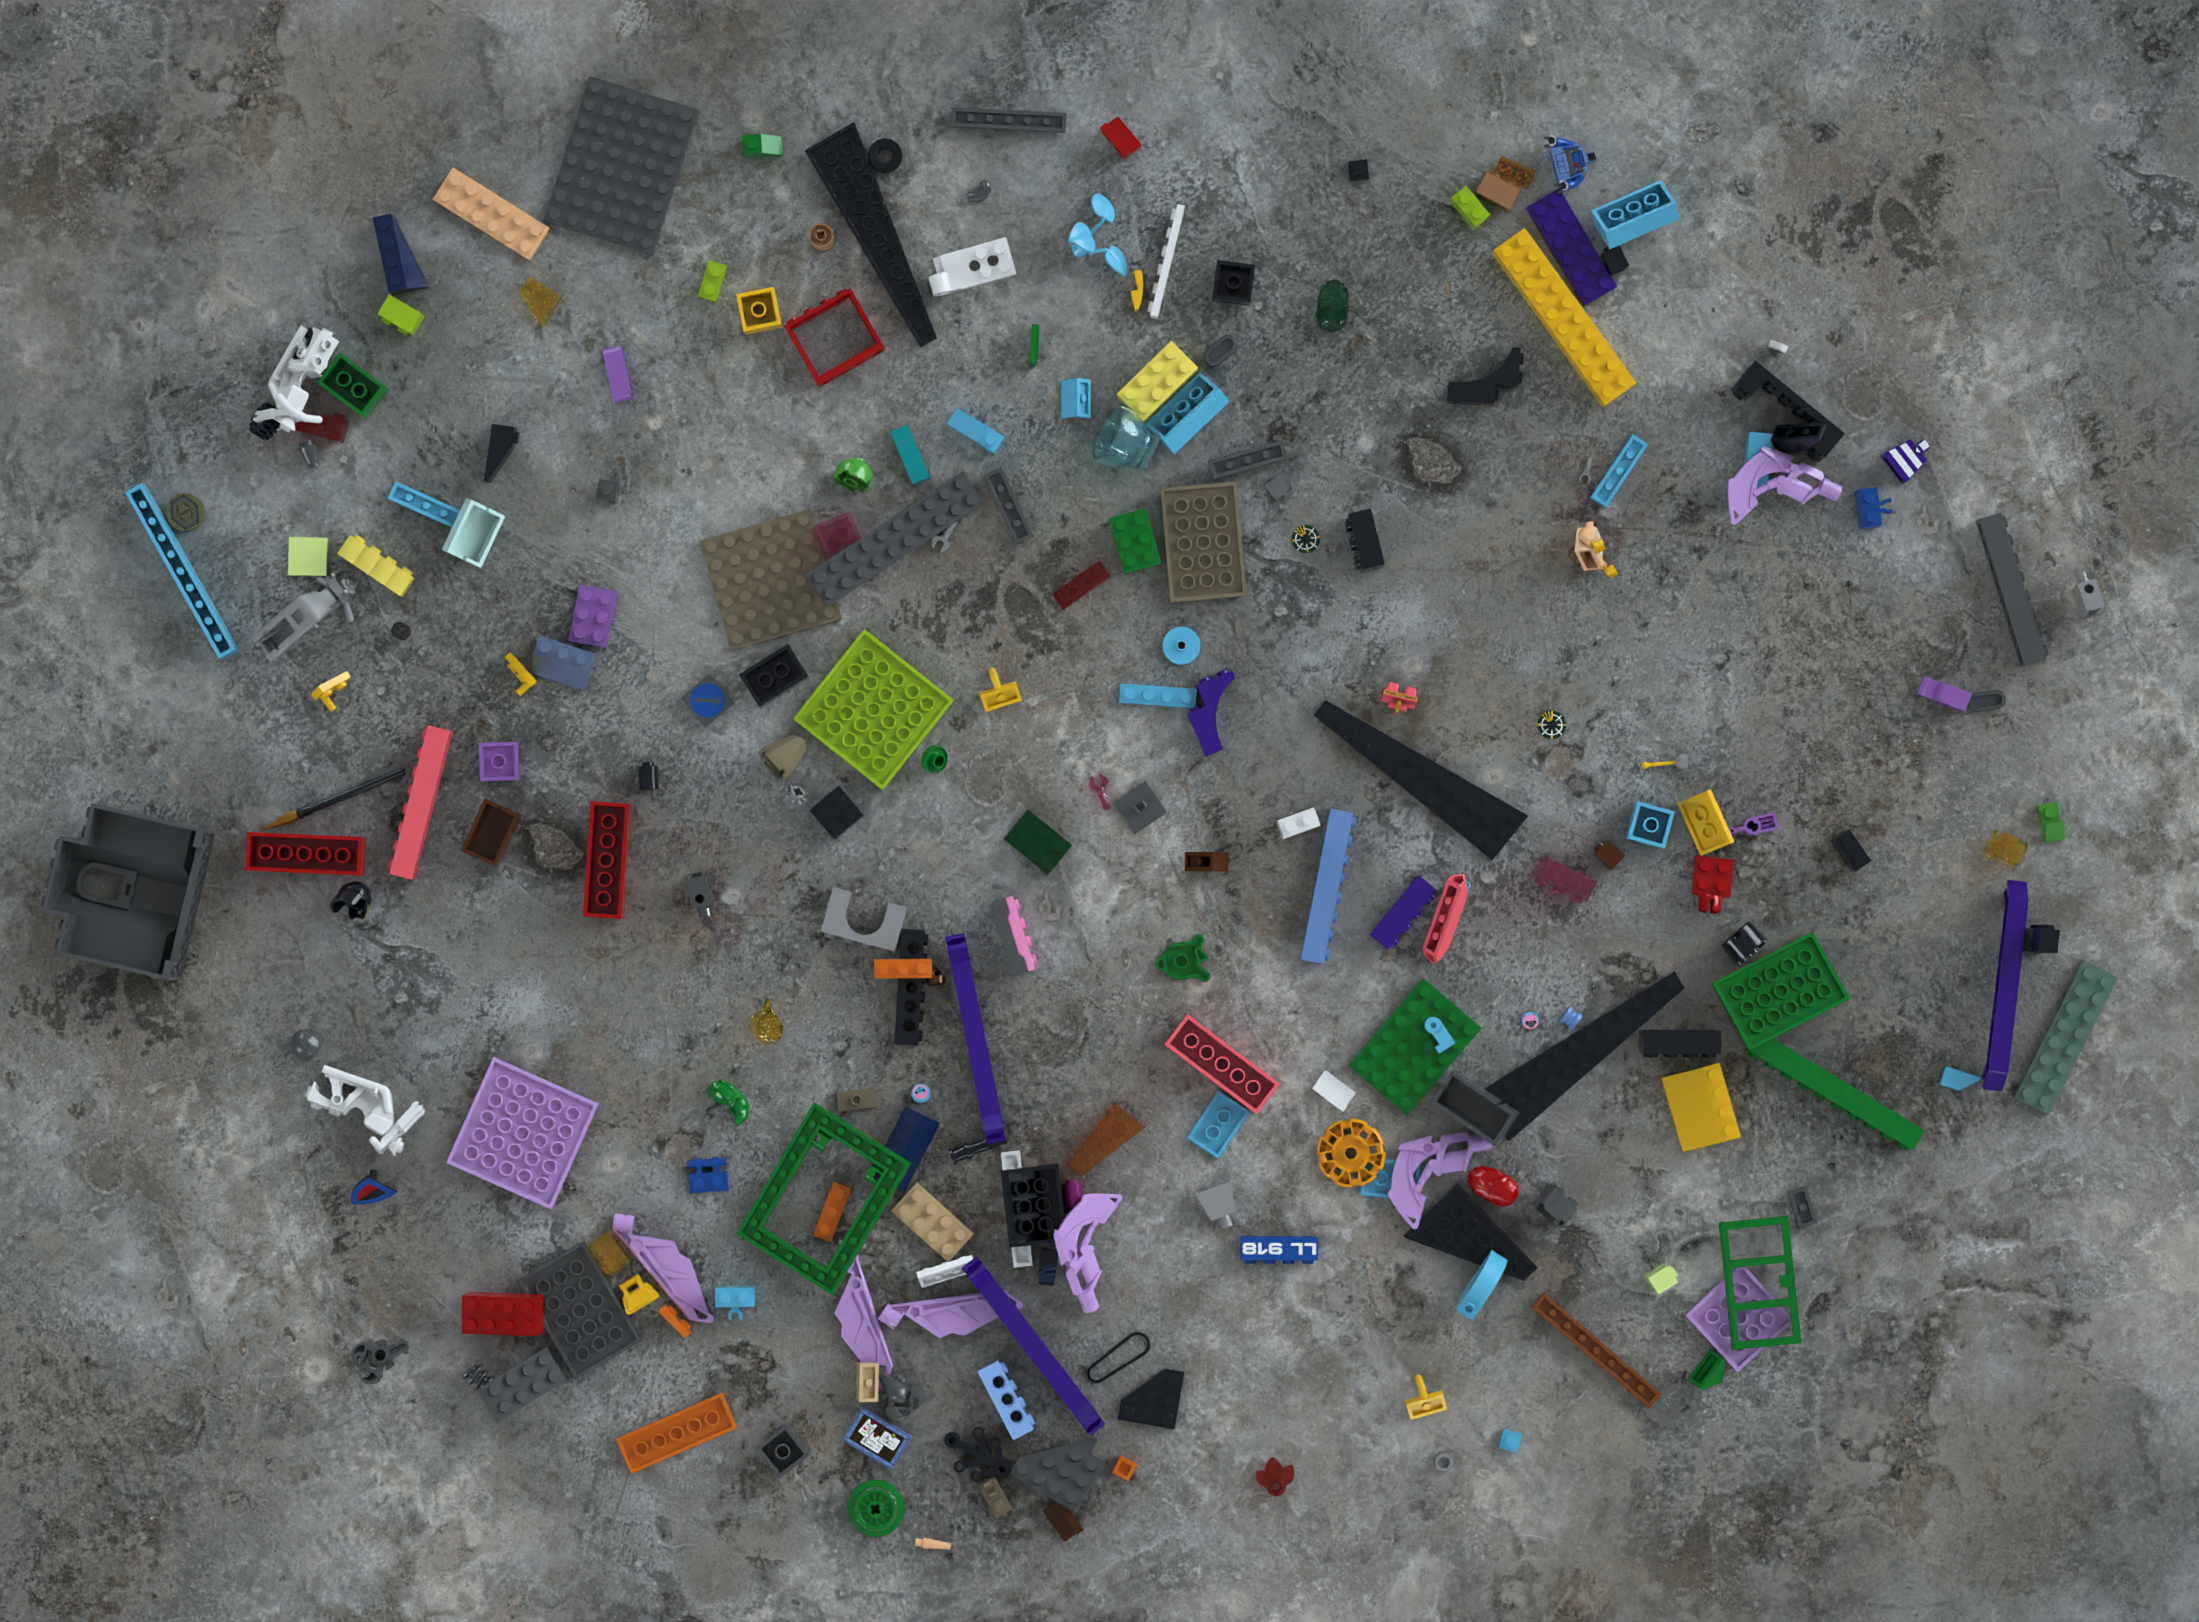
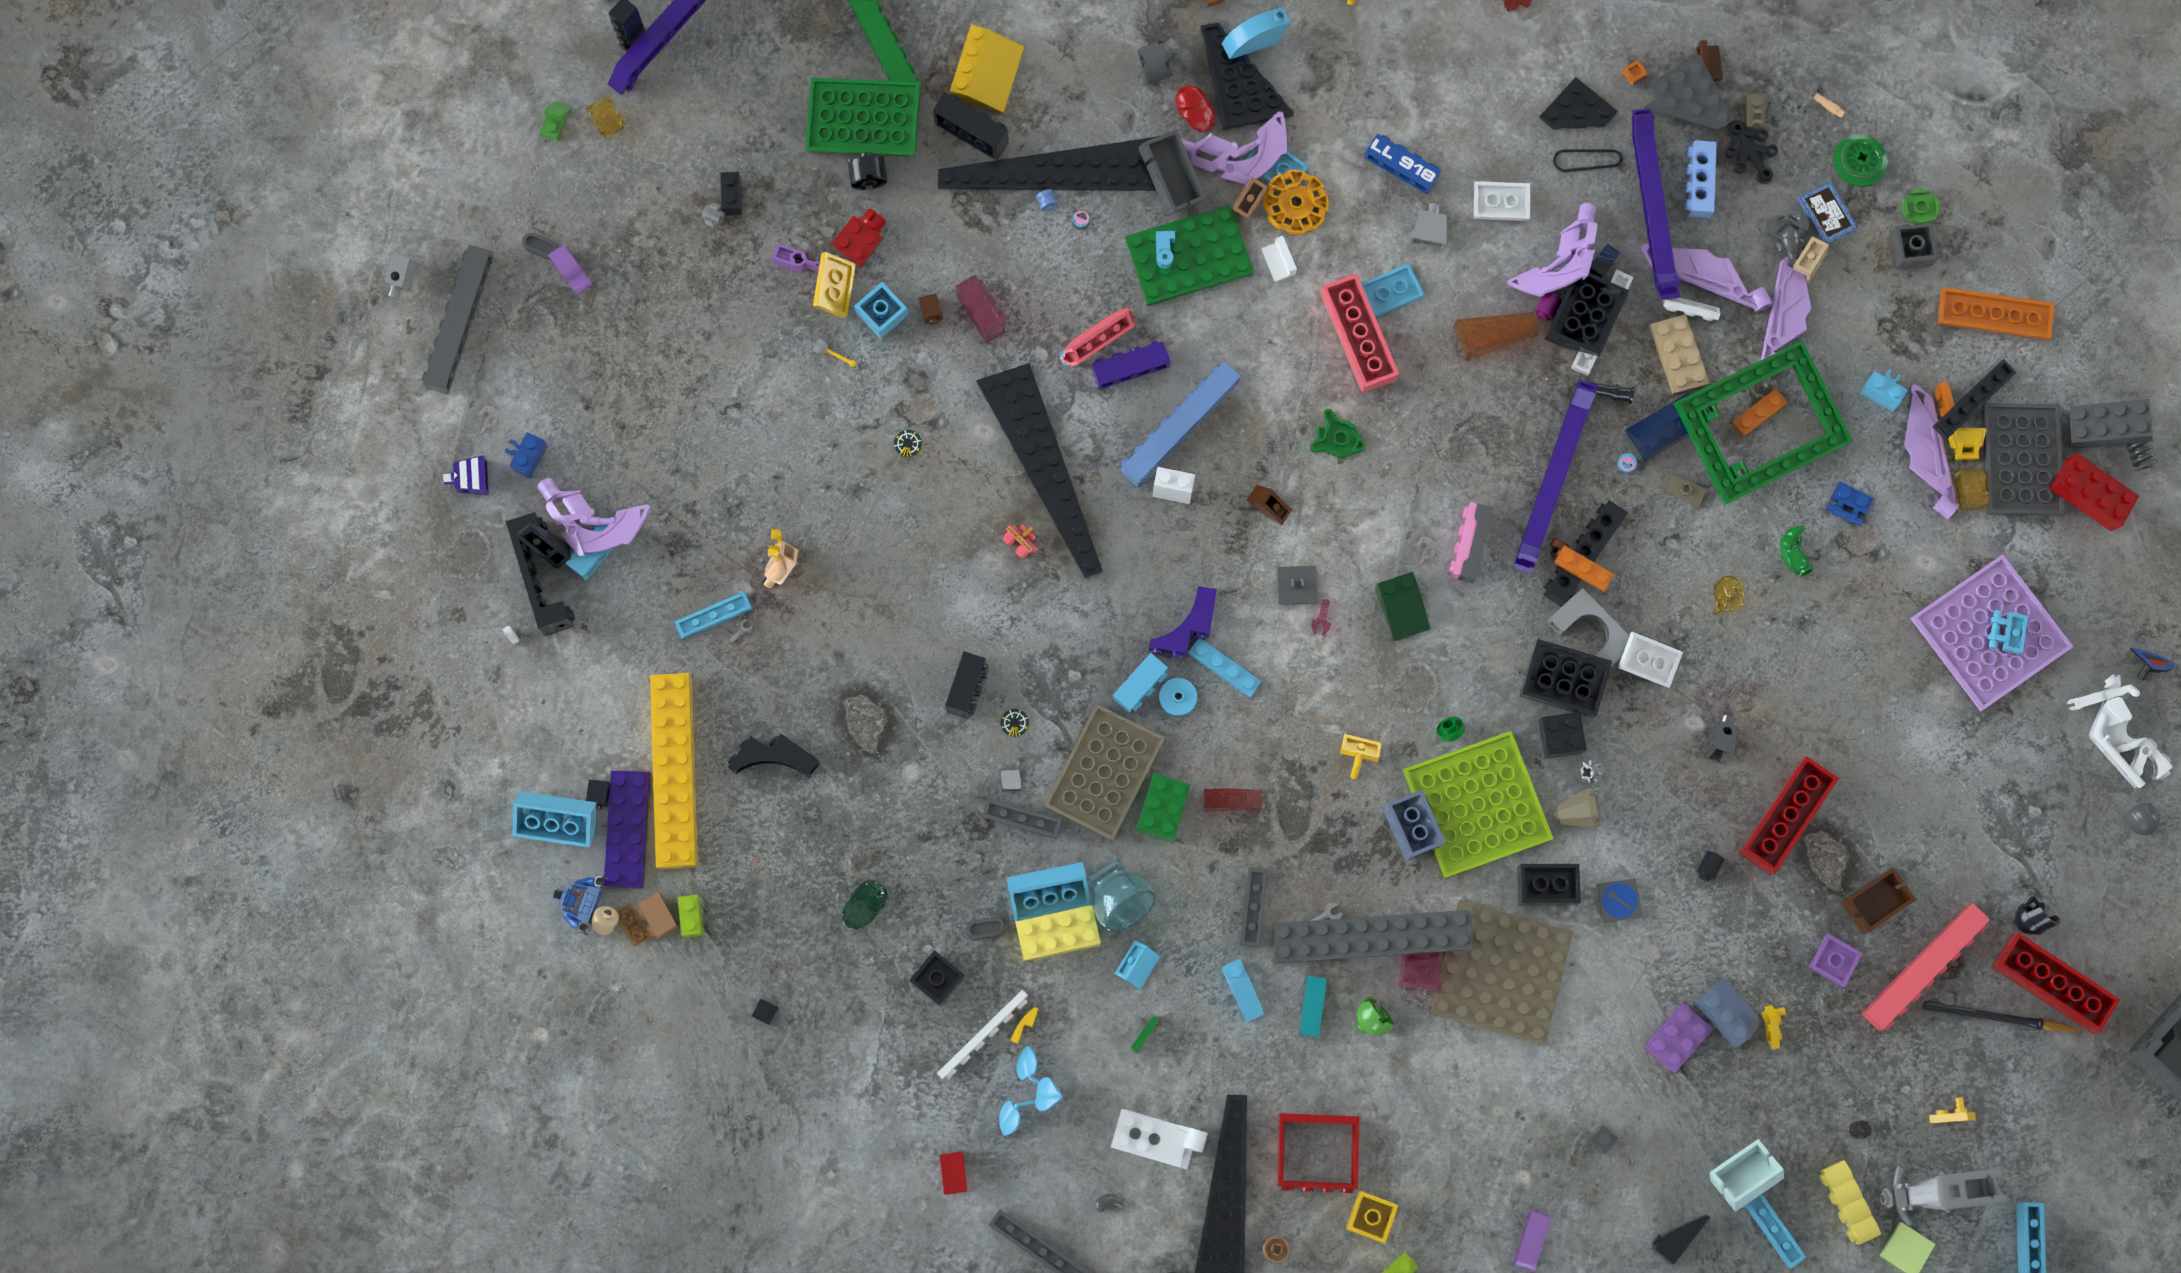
camera: 155 degrees left, 10 degrees down
(503, 1140) = (2014, 633): none -> medium azure plate
(652, 1336) = (1974, 399): none -> black tile
(797, 1495) = (1920, 207): none -> bright green tile
(800, 923) = (1650, 659): none -> white plate
(862, 861) = (1565, 678): none -> black slope
(916, 656) = (1413, 825): none -> sand blue slope
(1170, 1268) = (1501, 201): none -> white plate
(1219, 636) = (1140, 683): none -> medium azure brick
(1393, 1129) = (1249, 197): none -> medium nougat brick
(1538, 160) = (604, 920): none -> tan head
(1853, 821) = (713, 214): none -> light grey gear

